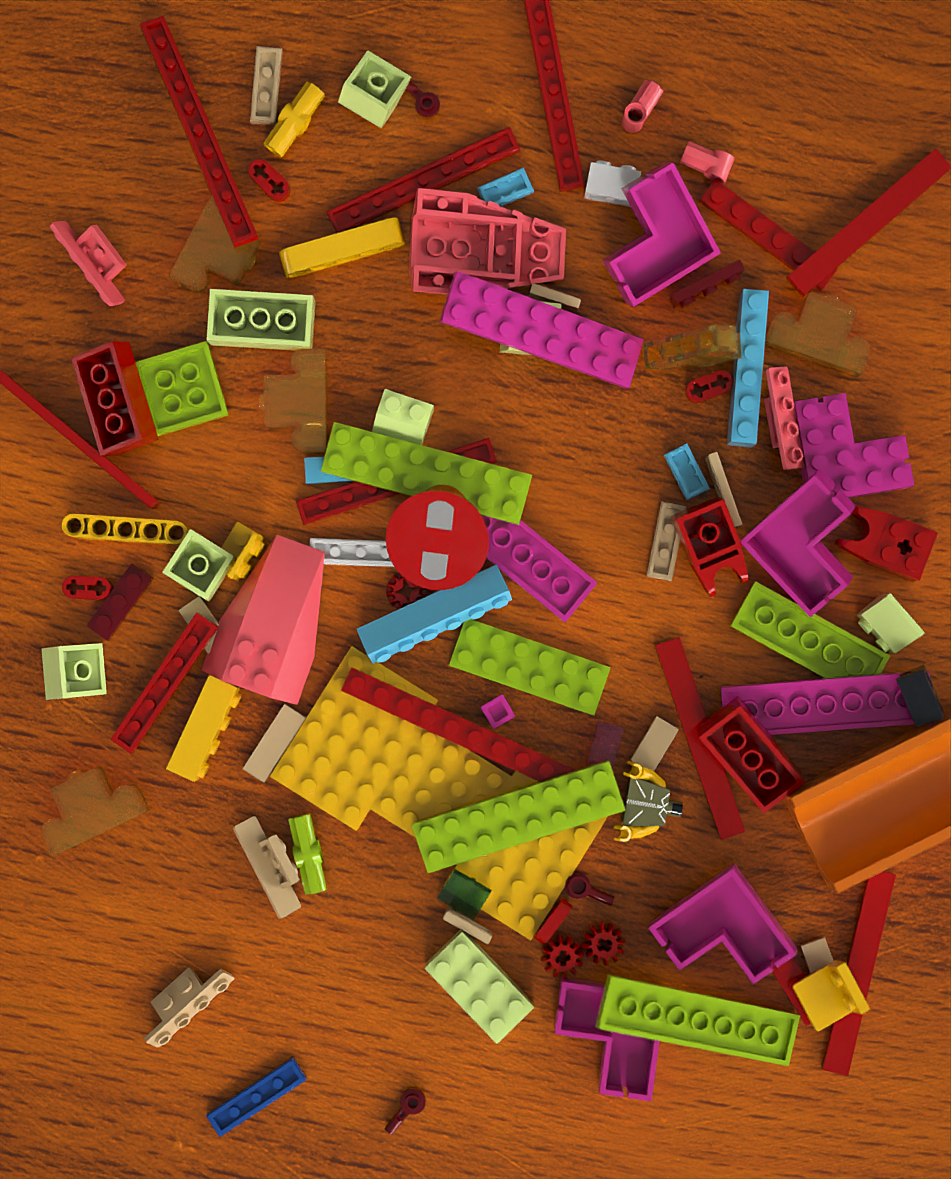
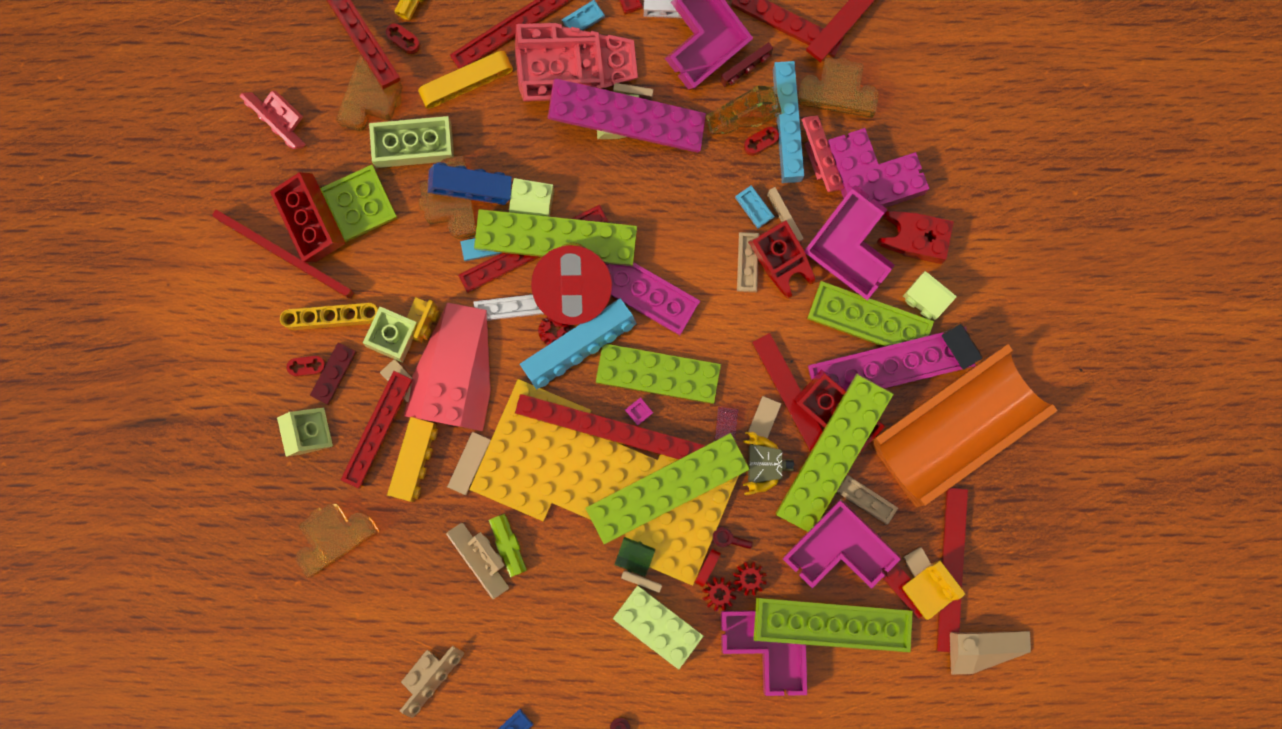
camera: 10 degrees left, 5 degrees down
(326, 388) = (469, 184): none -> blue brick
(736, 805) = (834, 453): none -> lime plate
(766, 867) = (867, 500): none -> tan tile
(880, 1077) = (981, 650): none -> tan wedge

